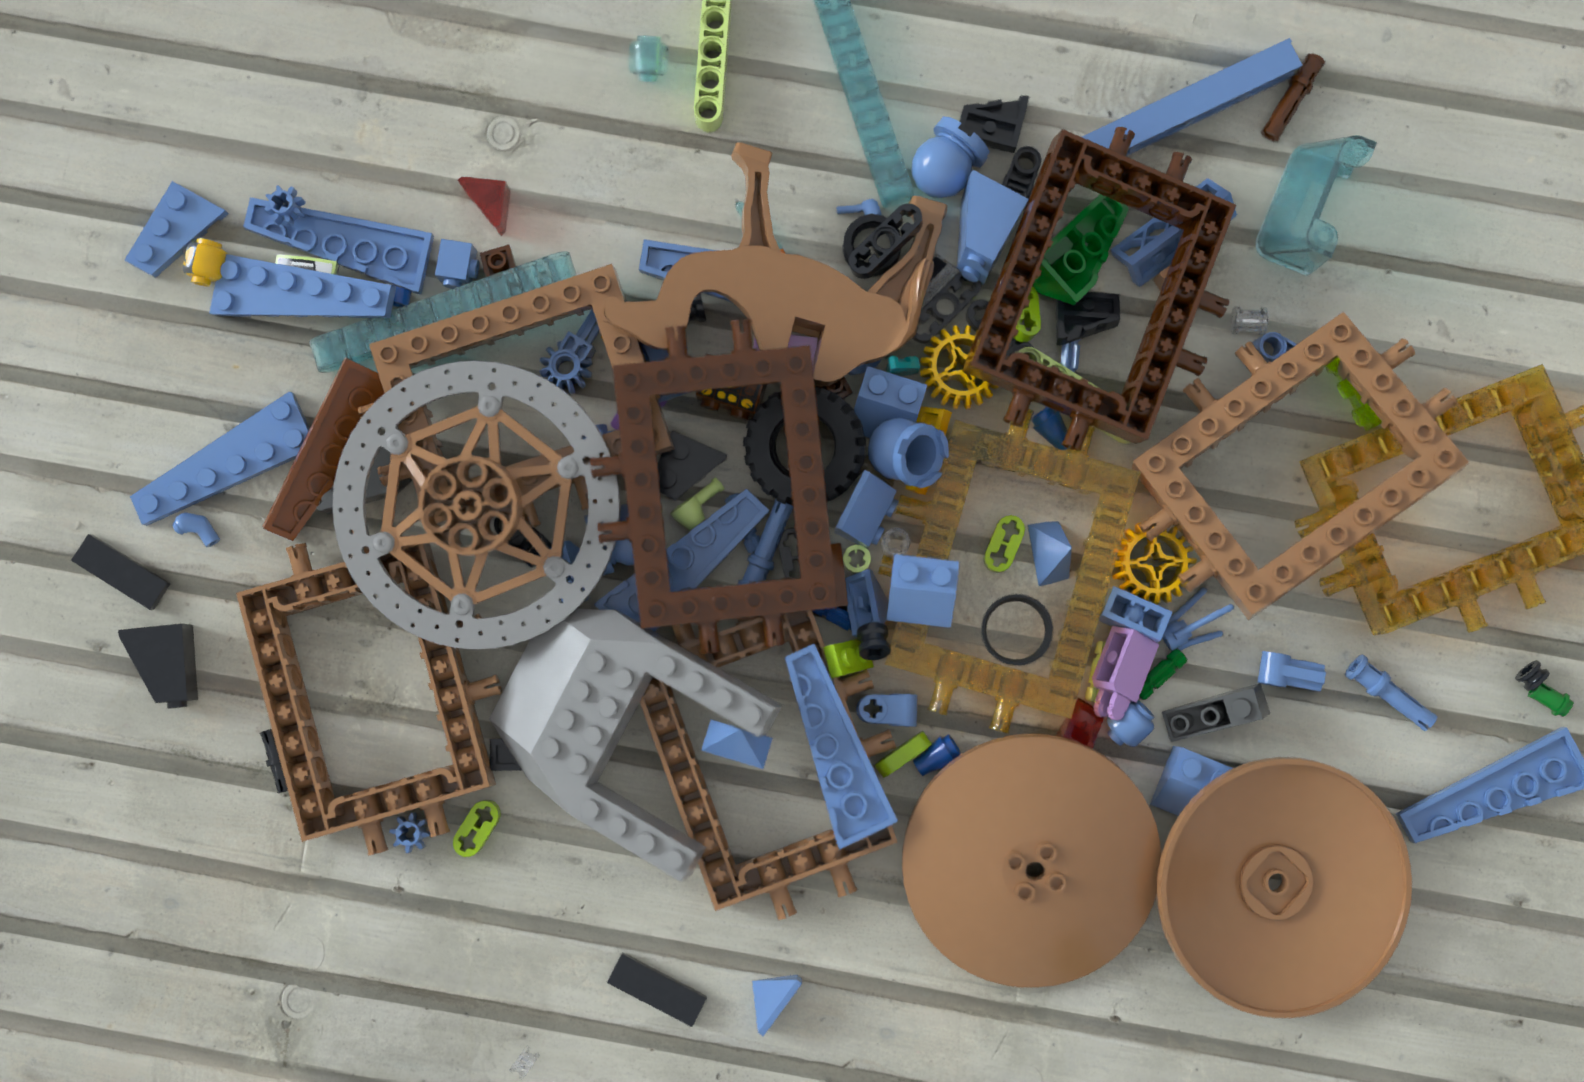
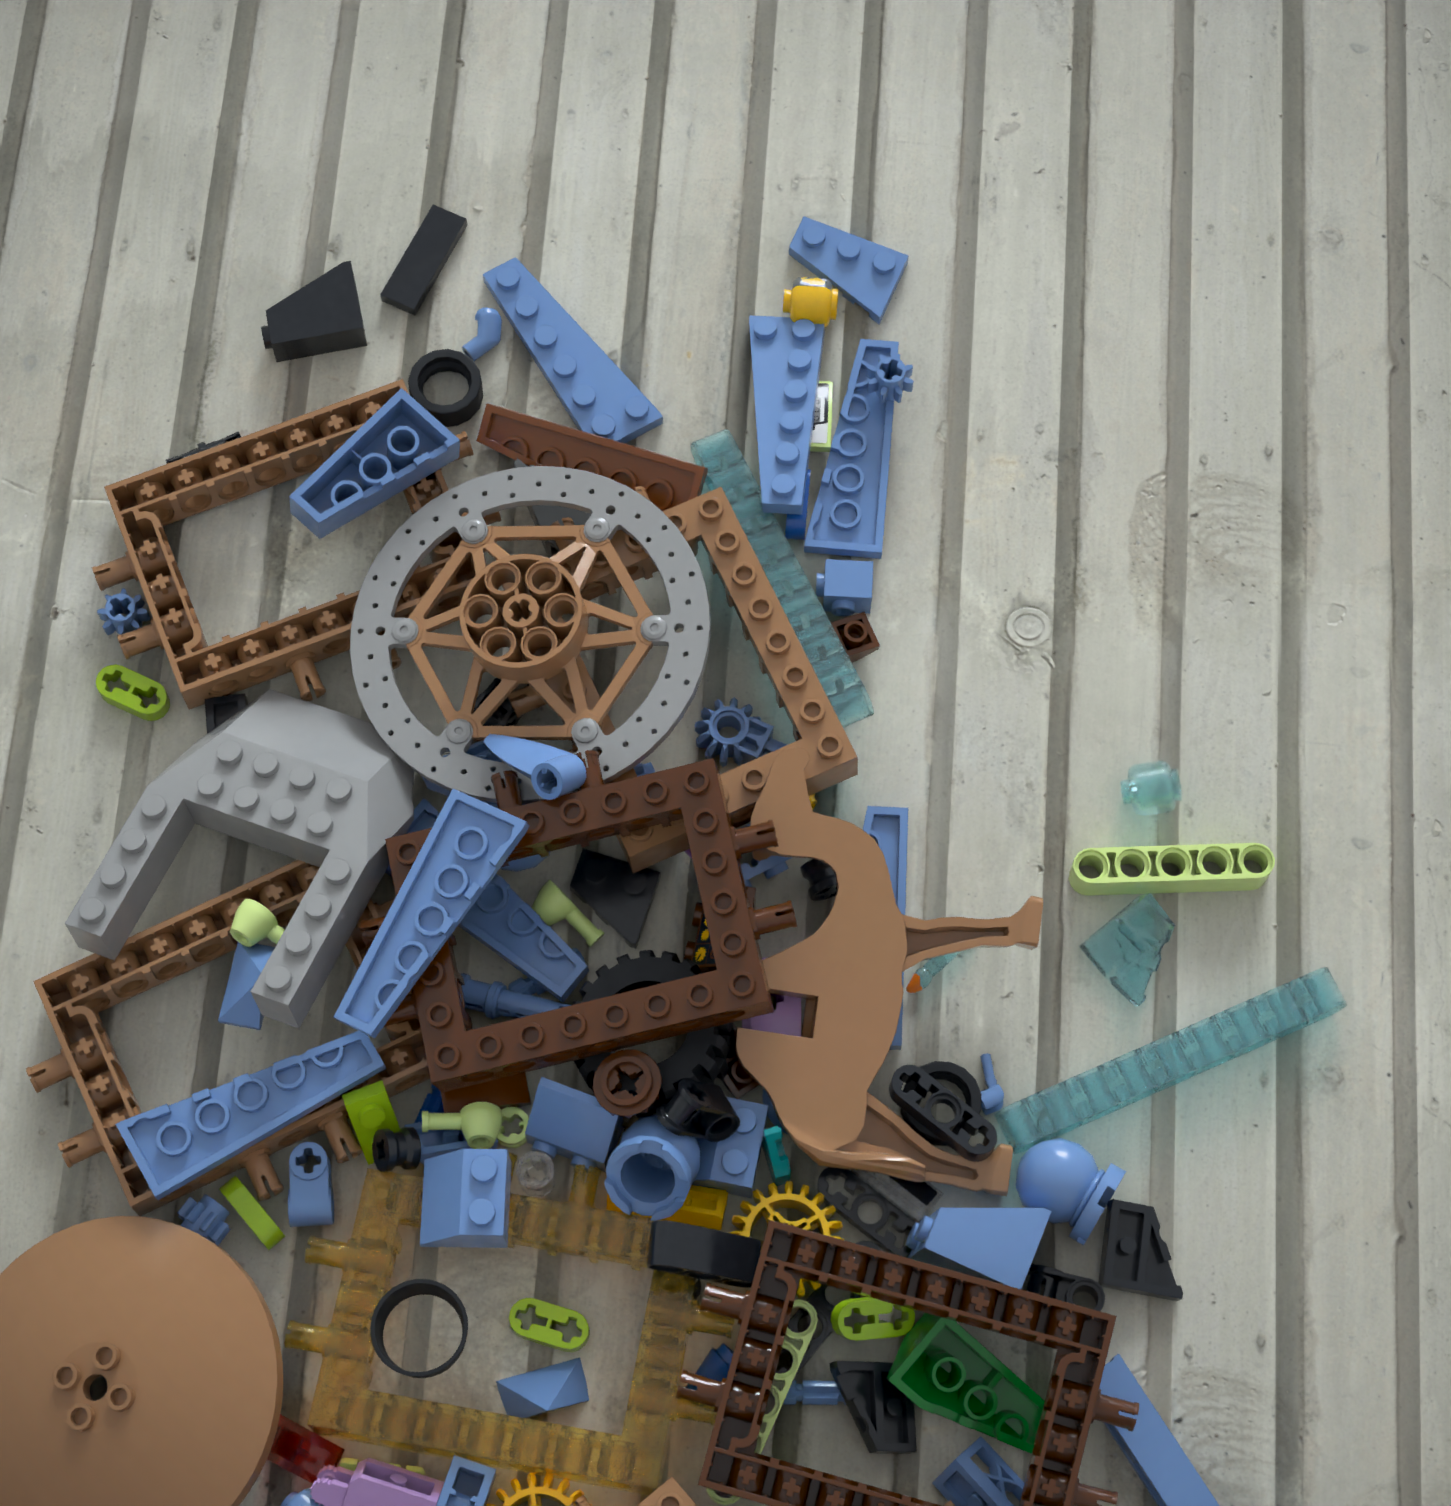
camera: 85 degrees right, 15 degrees down
(220, 551) = (444, 361): none -> black tyre
(311, 611) = (377, 462): none -> medium blue wedge
(490, 197) = (933, 618): clear red slope -> none
(603, 492) = (549, 768): none -> medium blue piece
(685, 580) = (441, 887): none -> medium blue wing
(692, 735) = (254, 923): none -> yellowish green bar
(766, 93) = (1131, 946): none -> clear light blue slope
(836, 456) = (634, 1065): none -> reddish brown gear
(857, 580) = (477, 1120): none -> yellowish green bar
(874, 413) = (699, 1112): none -> black piece
(906, 789) = (205, 1218): none -> medium blue gear
(937, 755) = (254, 1258): blue cone -> none
(980, 420) = (703, 1253): none -> black beam

